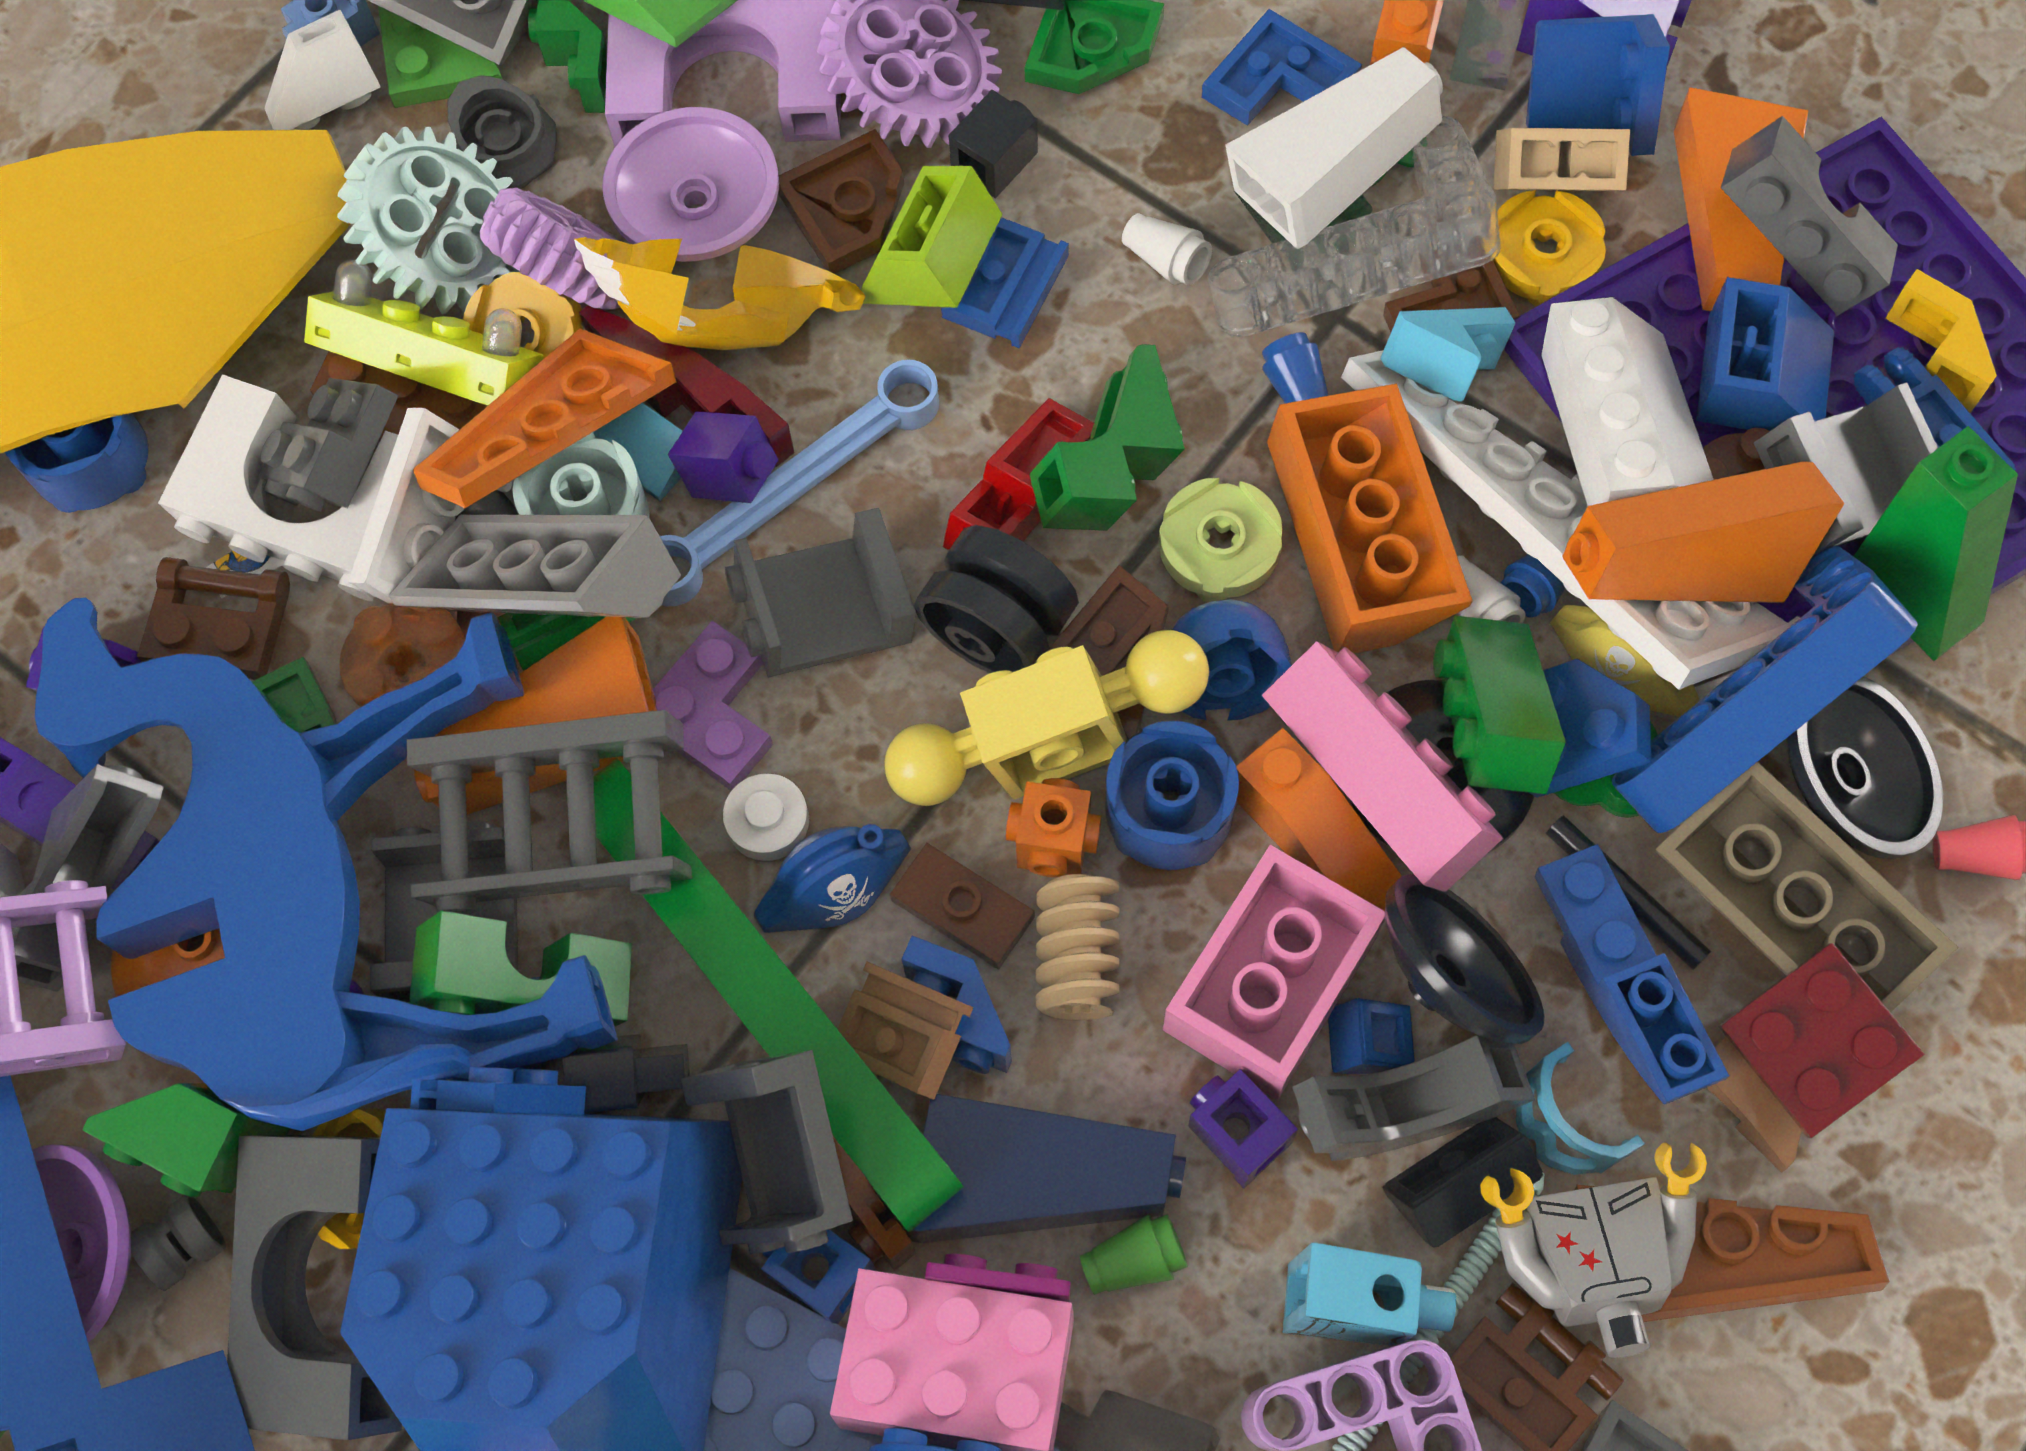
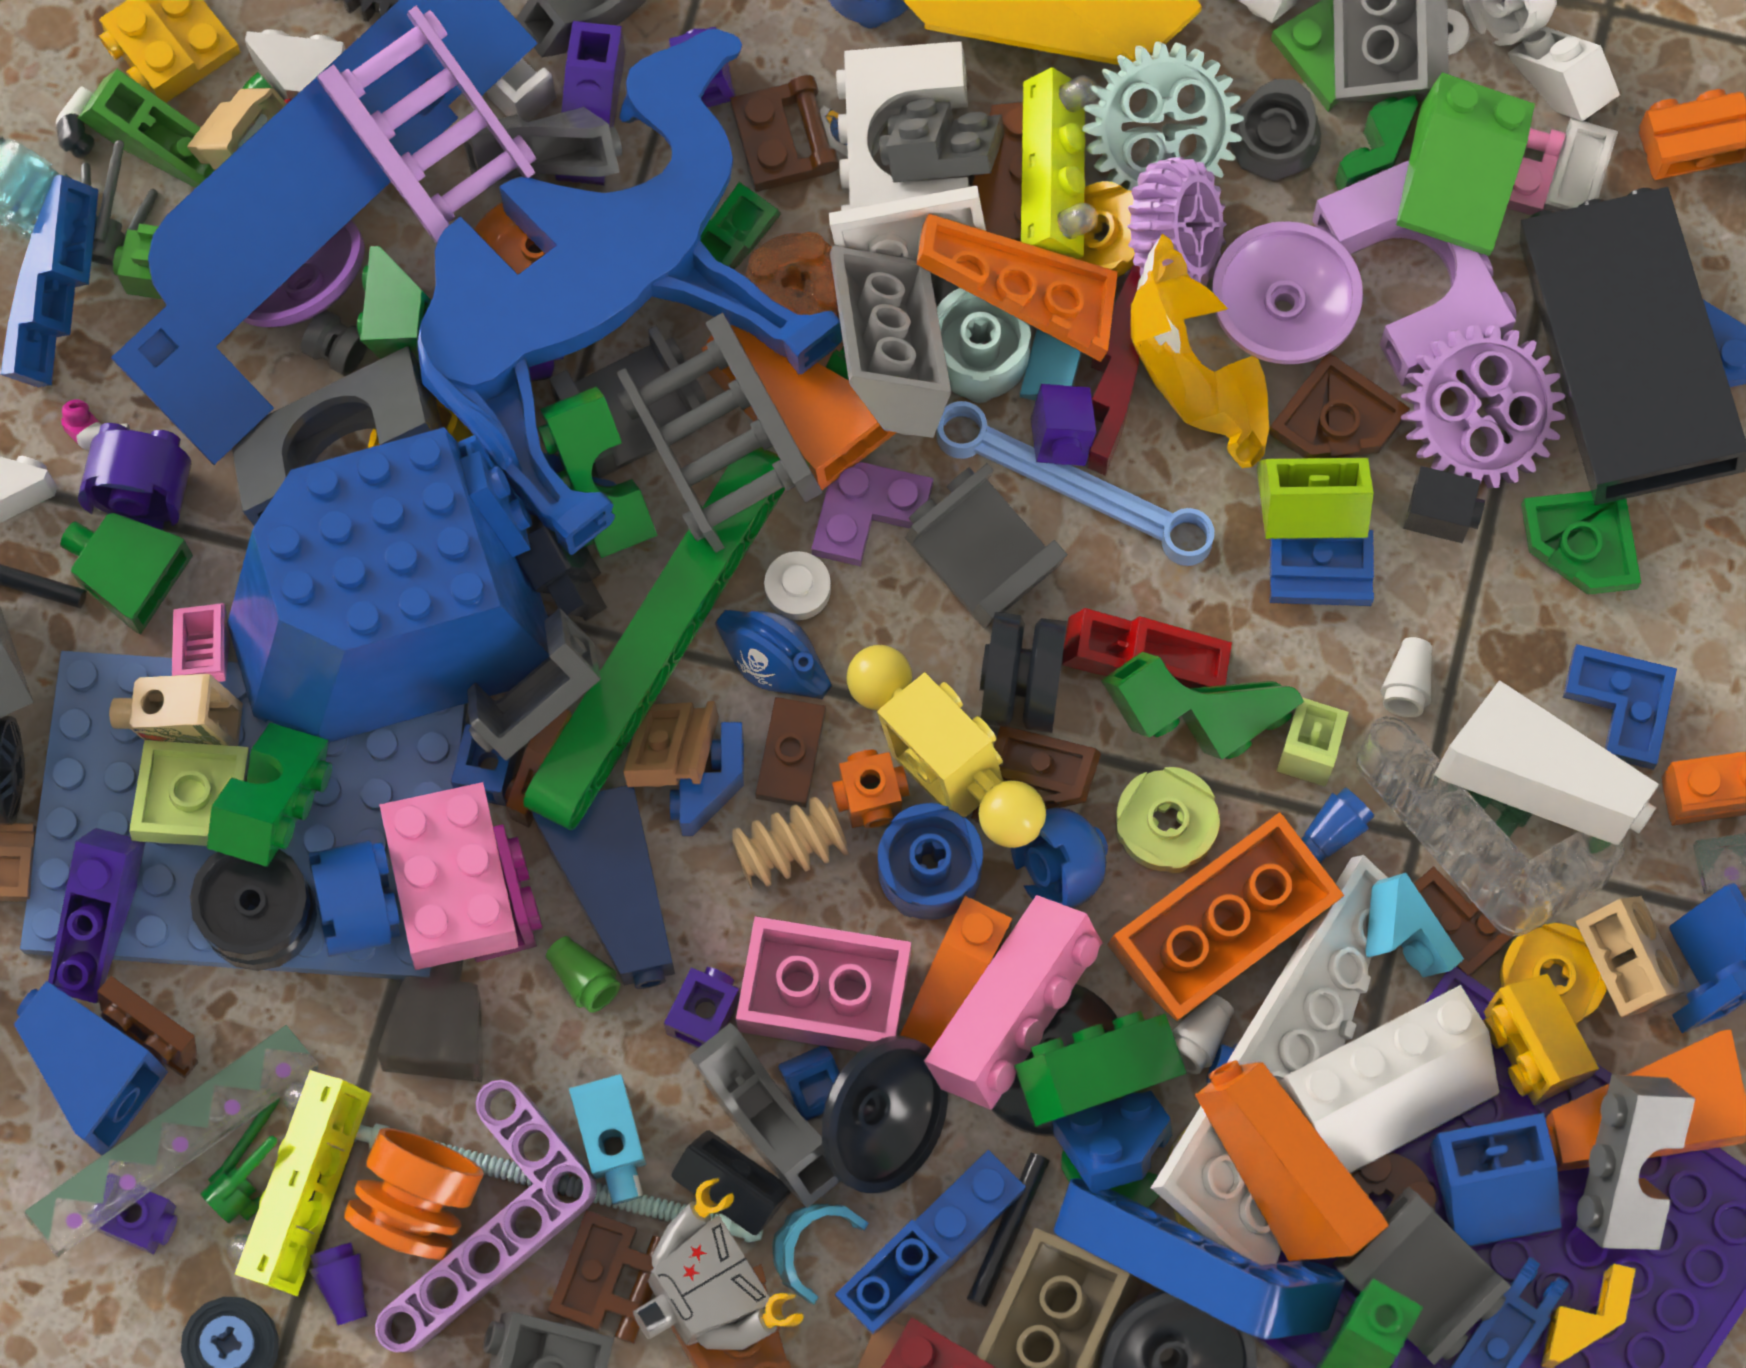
camera: 65 degrees right, 5 degrees up
(1203, 363) = (1313, 742): none -> yellowish green slope
(1638, 262) = (1538, 1039): none -> yellow slope

